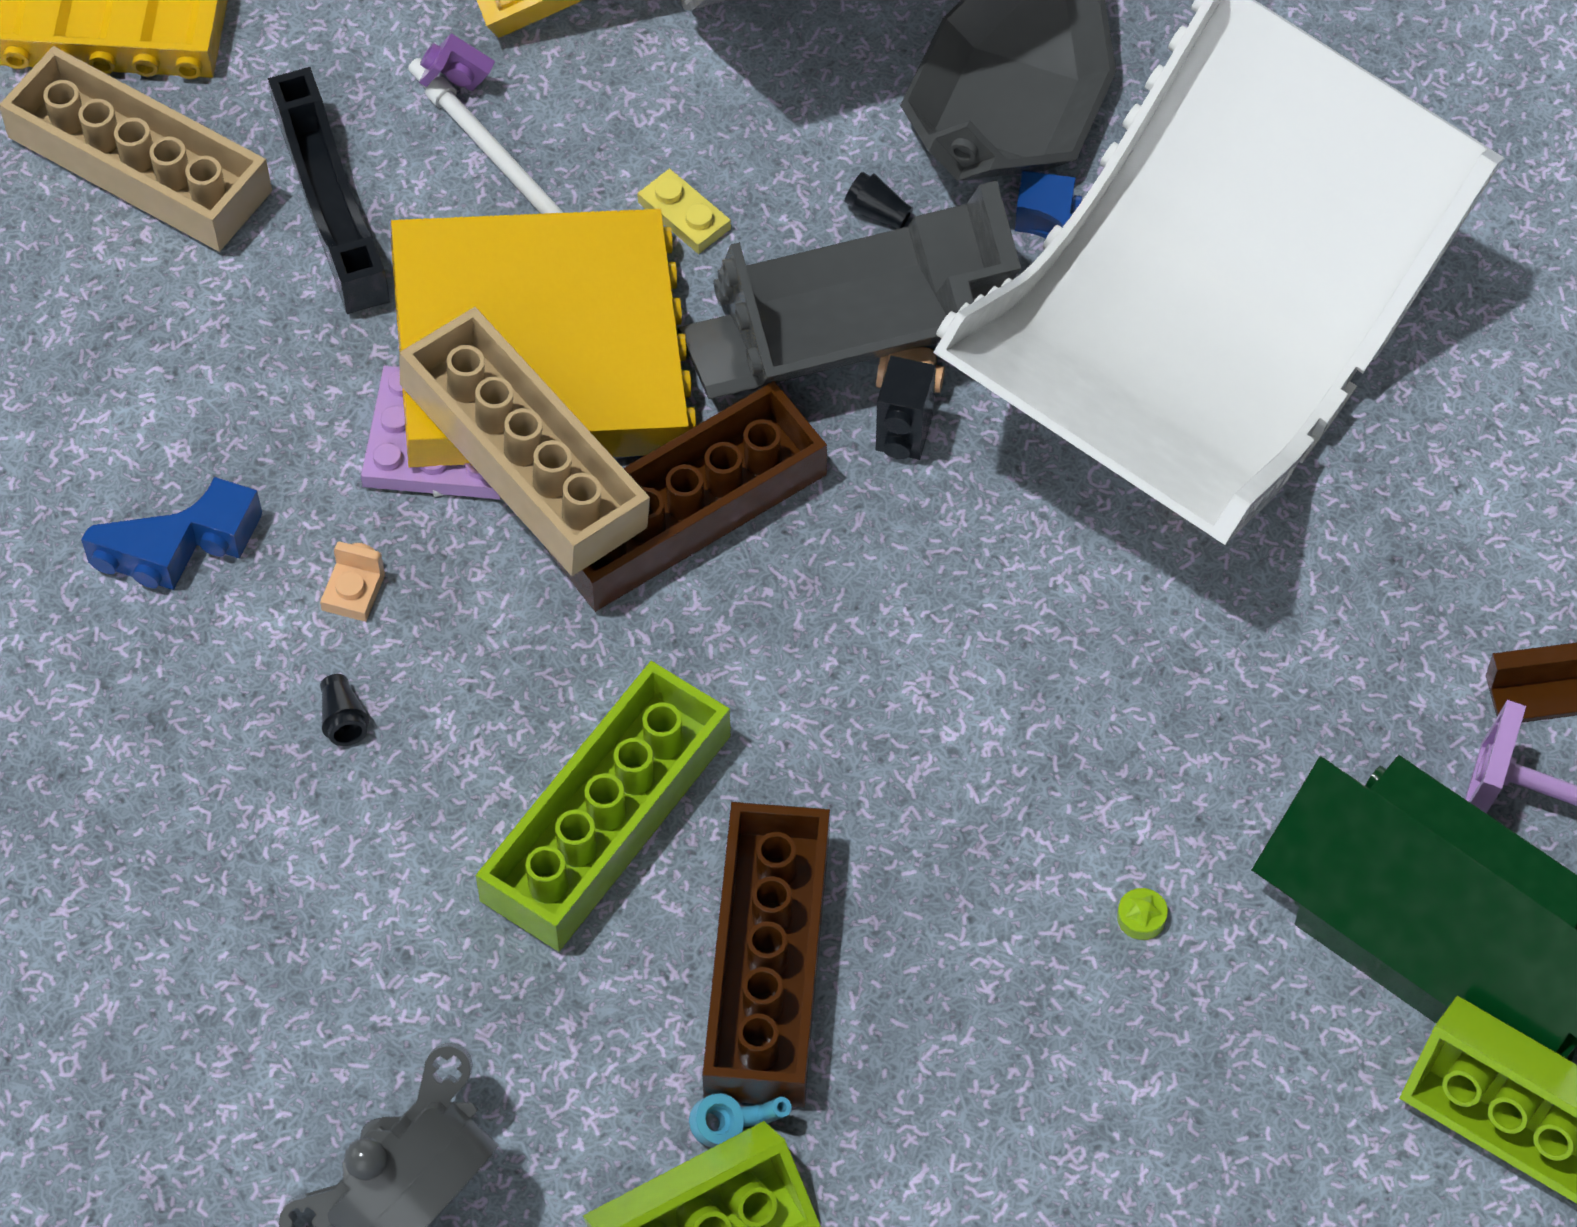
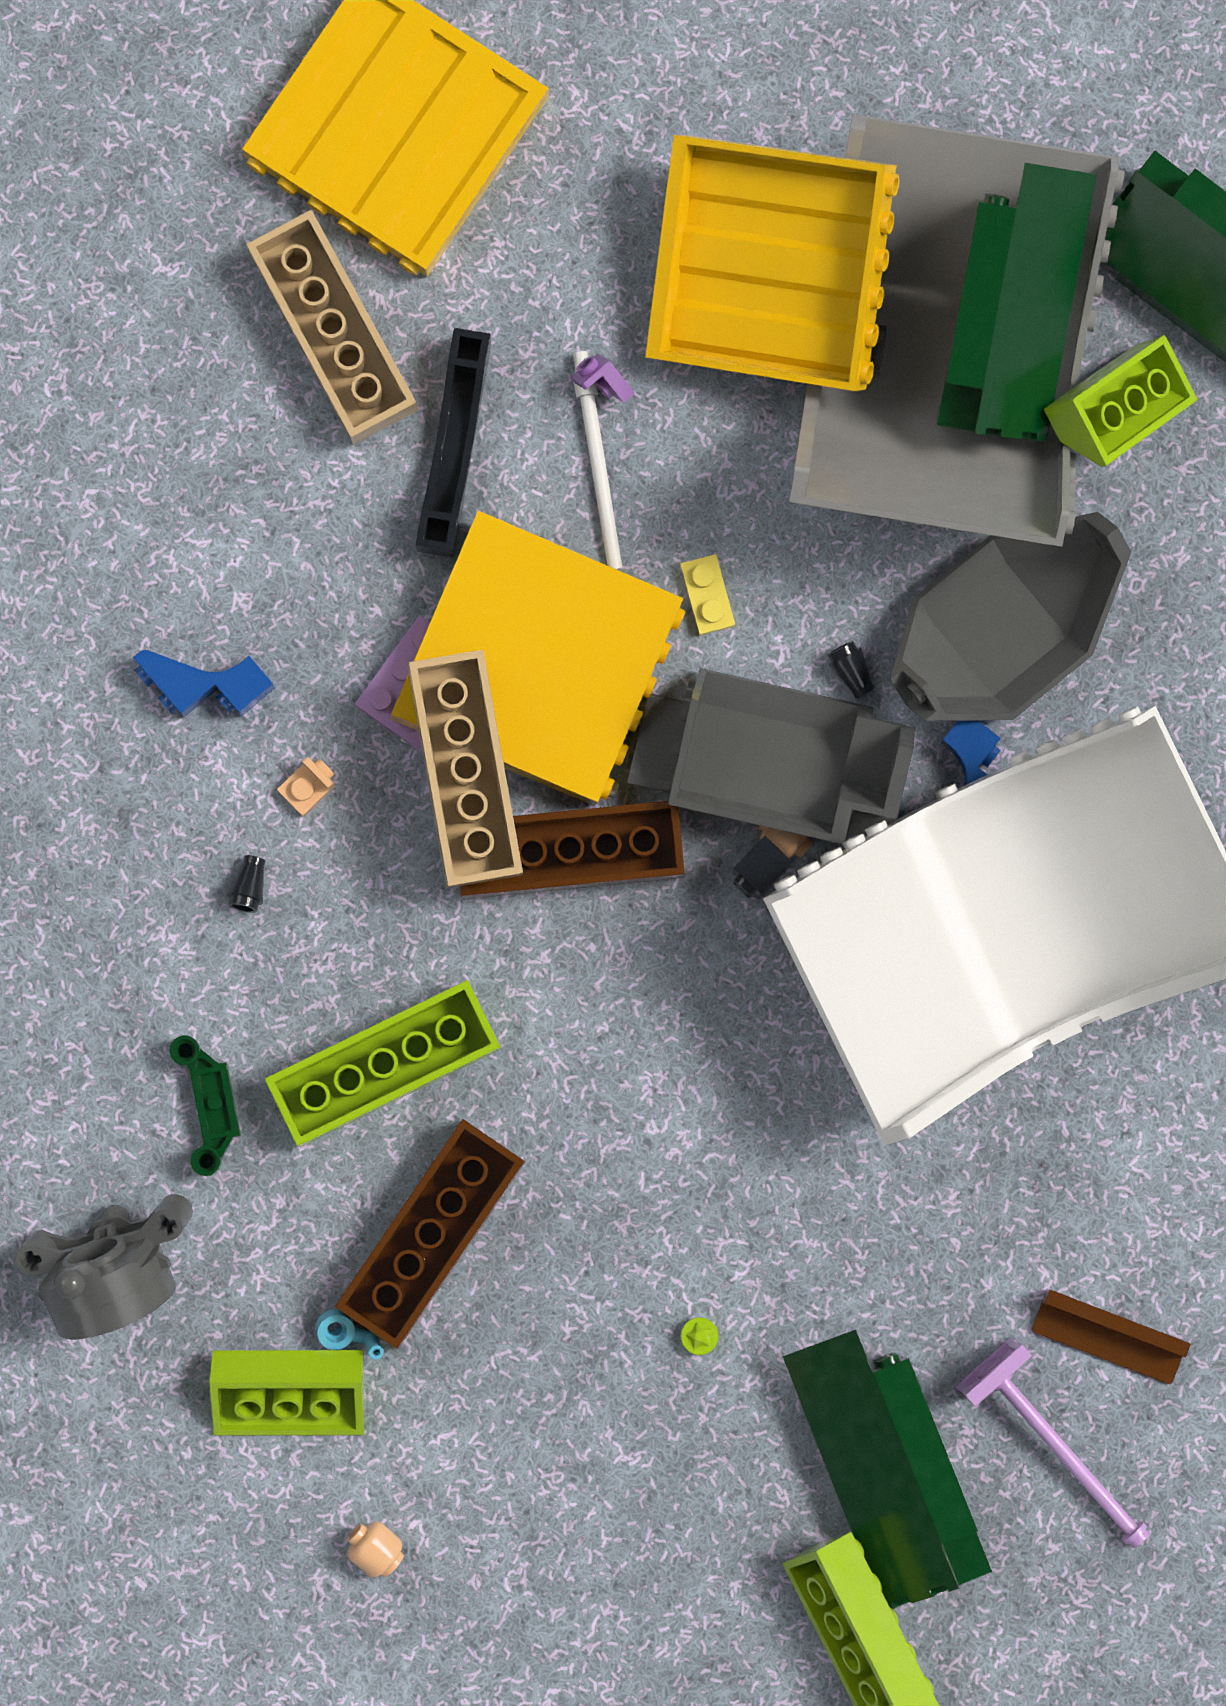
camera: 30 degrees right, 25 degrees up
(425, 948) = (213, 1102): none -> dark green plate

